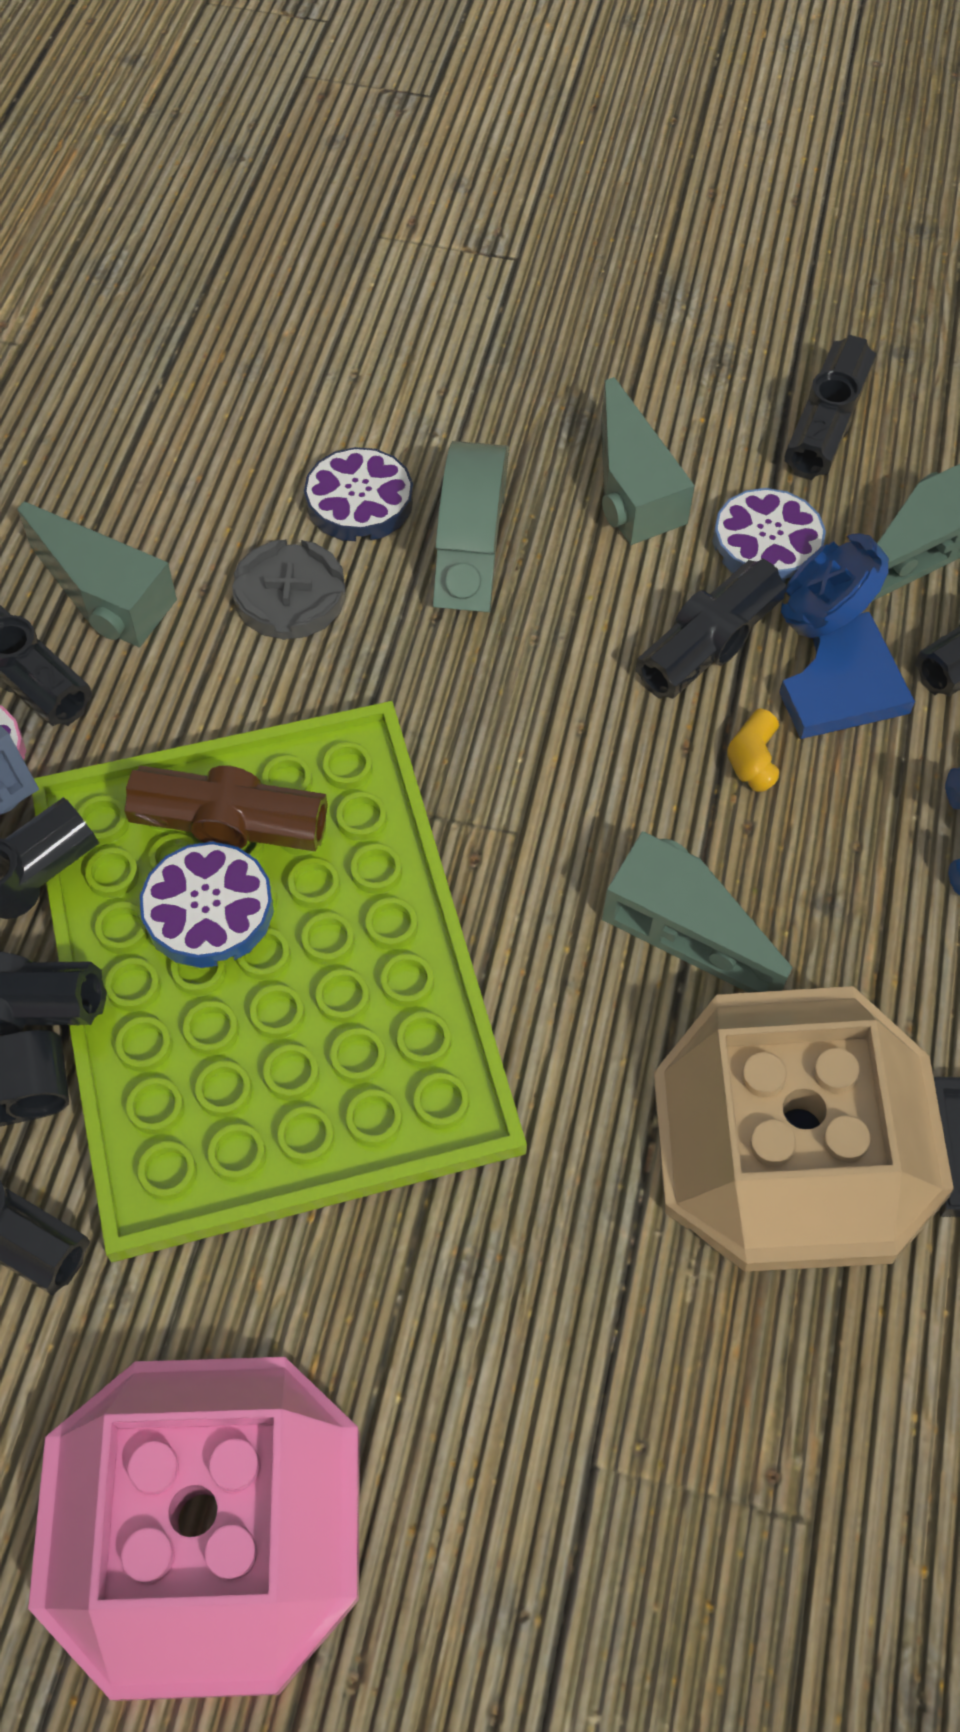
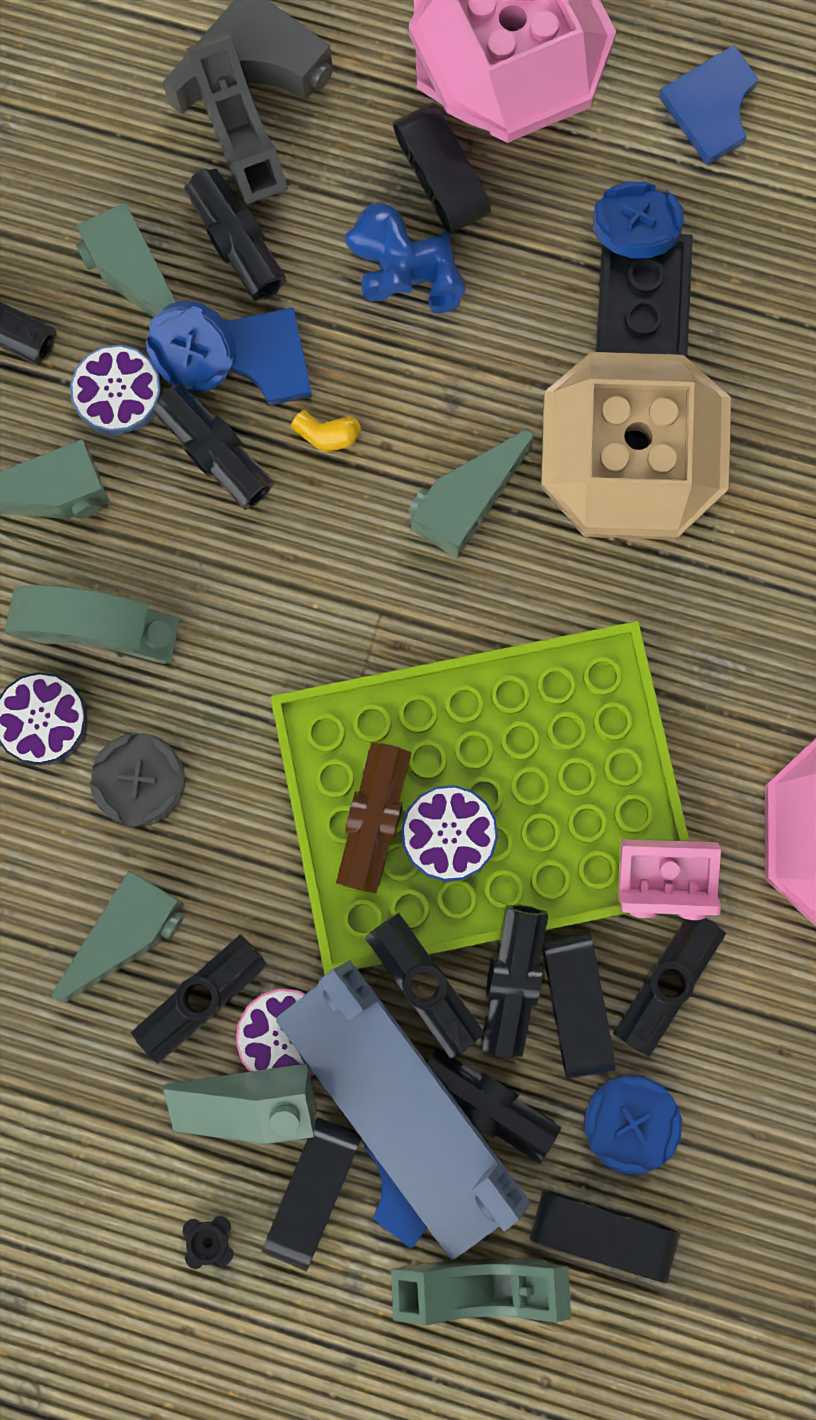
camera: 80 degrees left, 20 degrees up
(125, 1189) = (669, 878): none -> bright pink bracket

